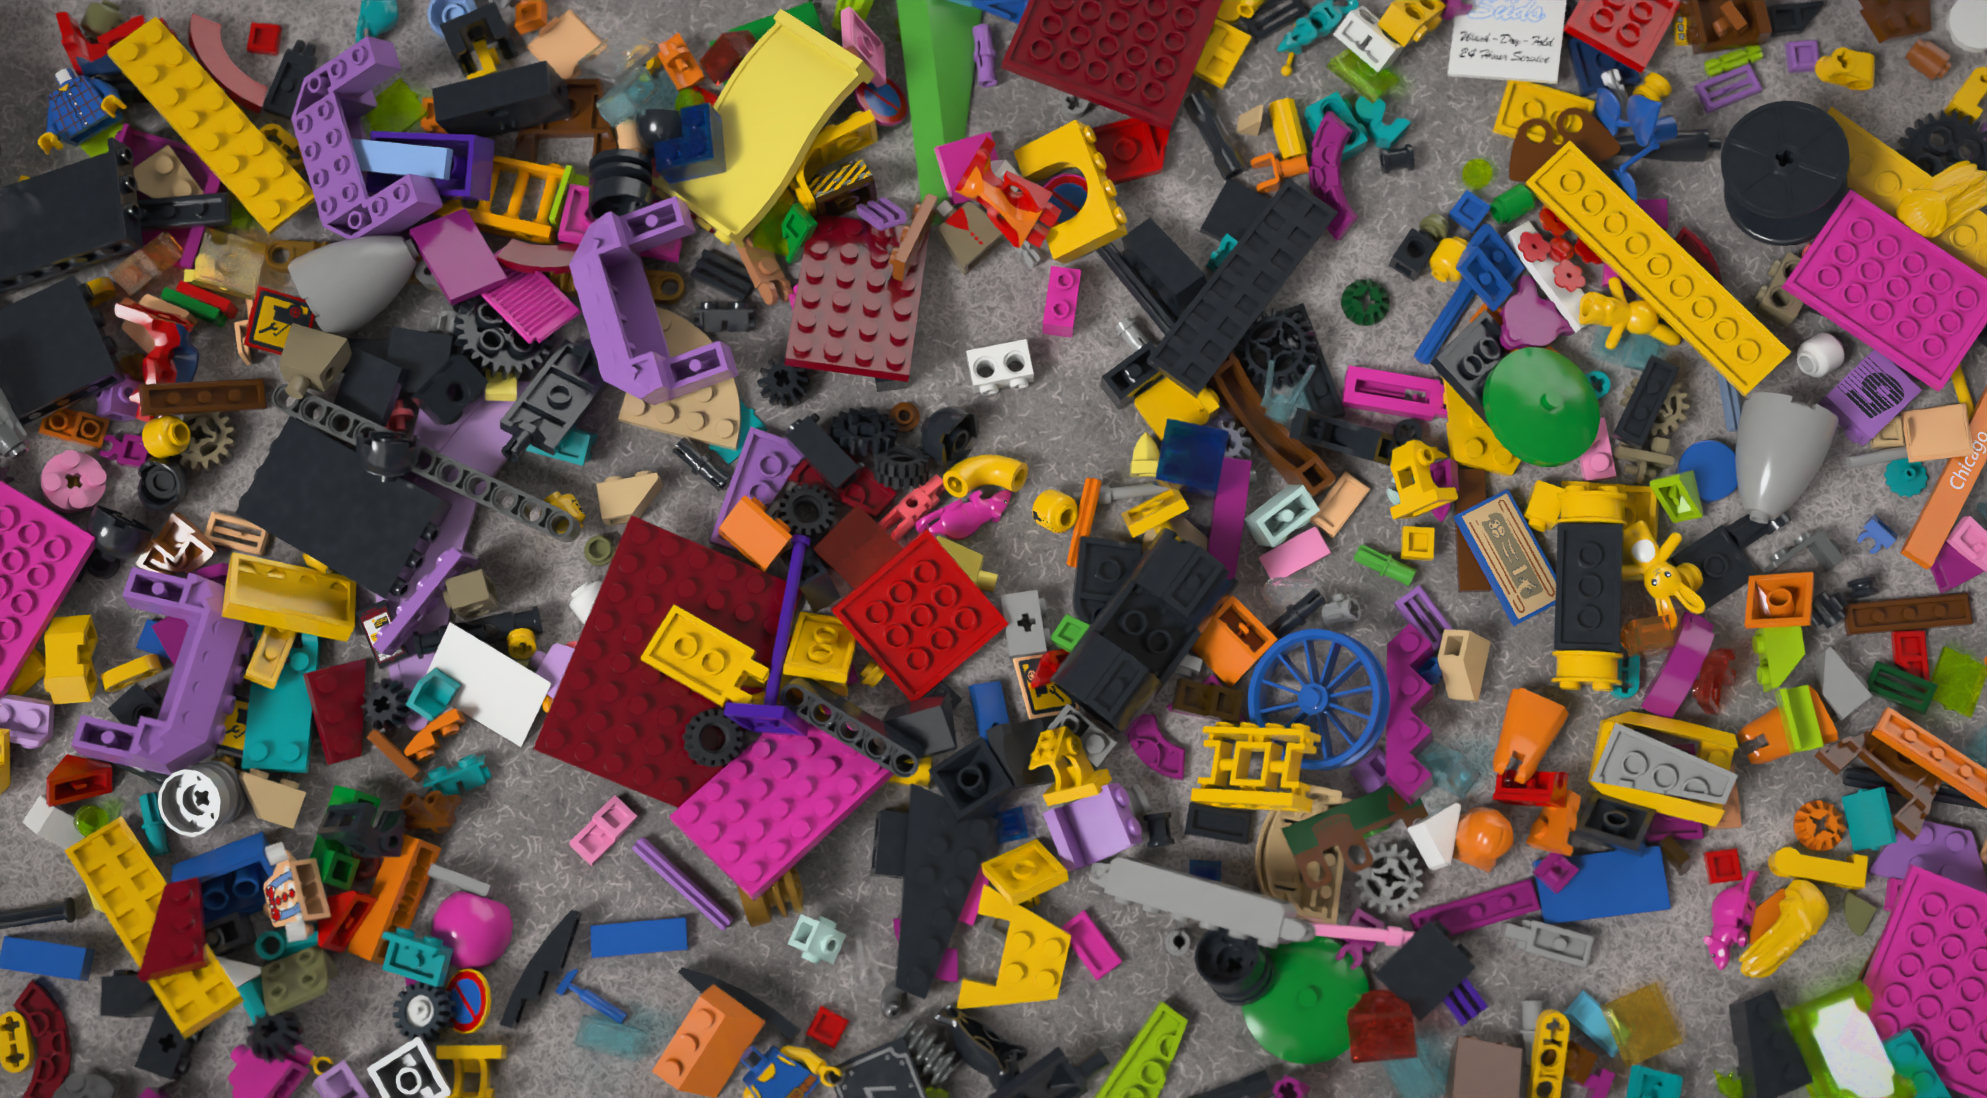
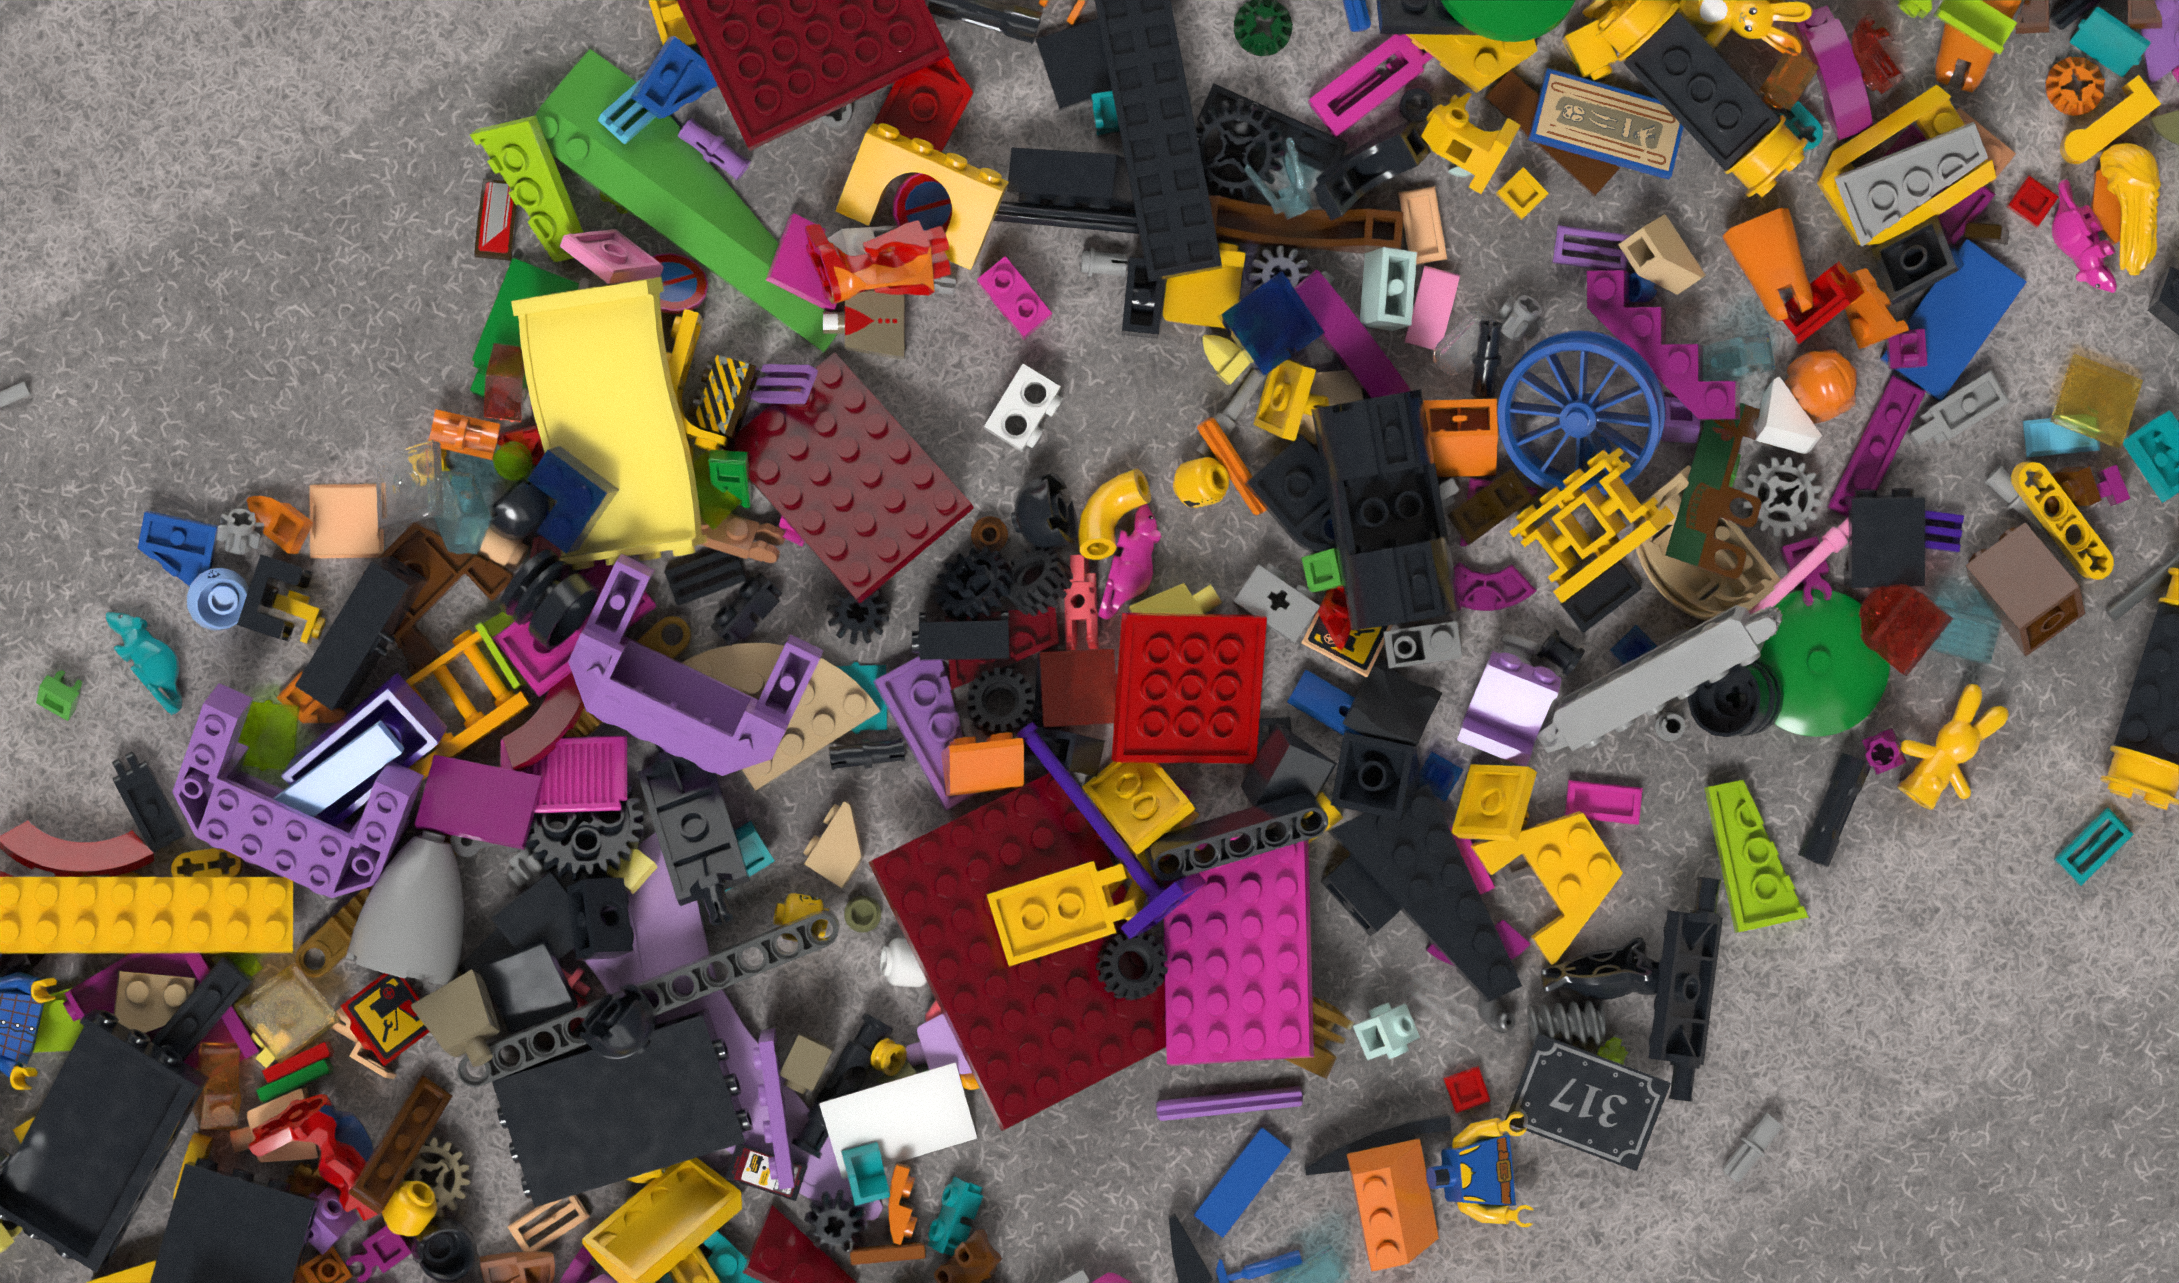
camera: 55 degrees left, 10 degrees up
(264, 38) = (78, 792): red tile -> none
(603, 830) = (1119, 1131): bright pink slope -> none
(871, 673) = (1196, 775): yellow plate -> none
(913, 236) = (836, 378): dark orange tile -> none
(1072, 780) = (1454, 688): yellow tile -> none
(1384, 564) = (1512, 238): bright green axle -> none
(1444, 475) = (1491, 116): magenta plate -> none

